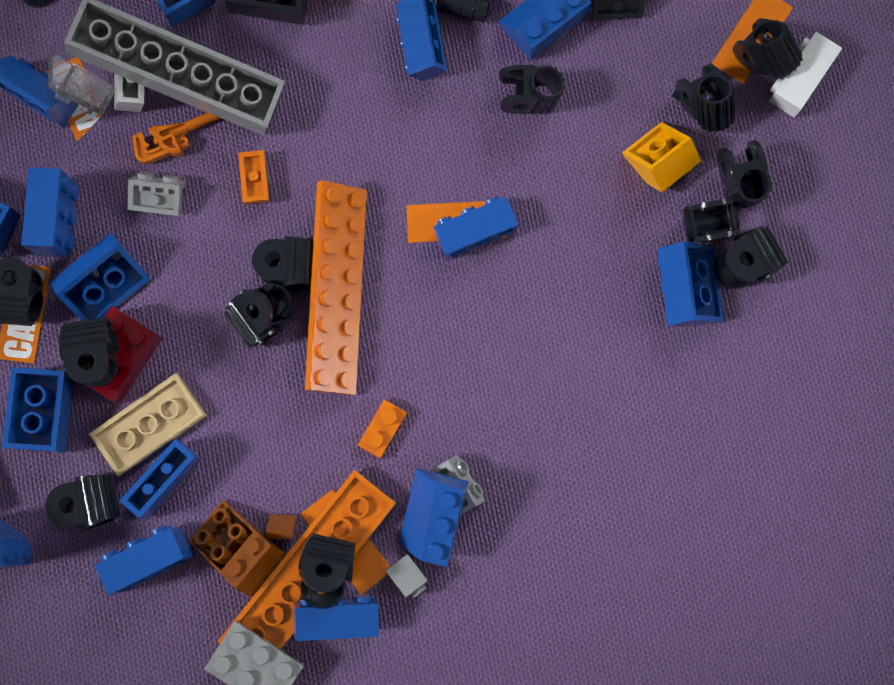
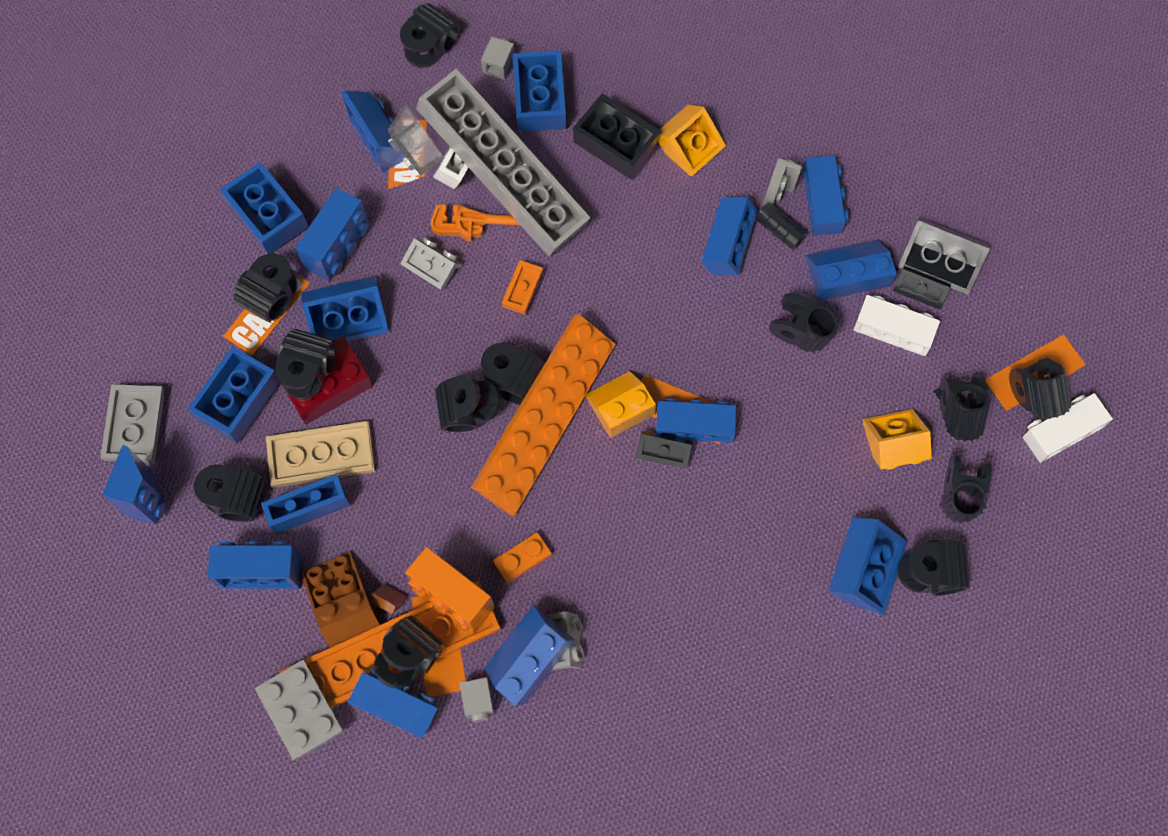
camera: 25 degrees right, 10 degrees down
(335, 496) = (449, 591): none -> orange brick
(400, 243) = (621, 403): none -> light orange slope
(460, 267) = (664, 449): none -> black plate
(612, 50) = (896, 325): none -> white brick
(709, 220) = (914, 514): black piece -> none

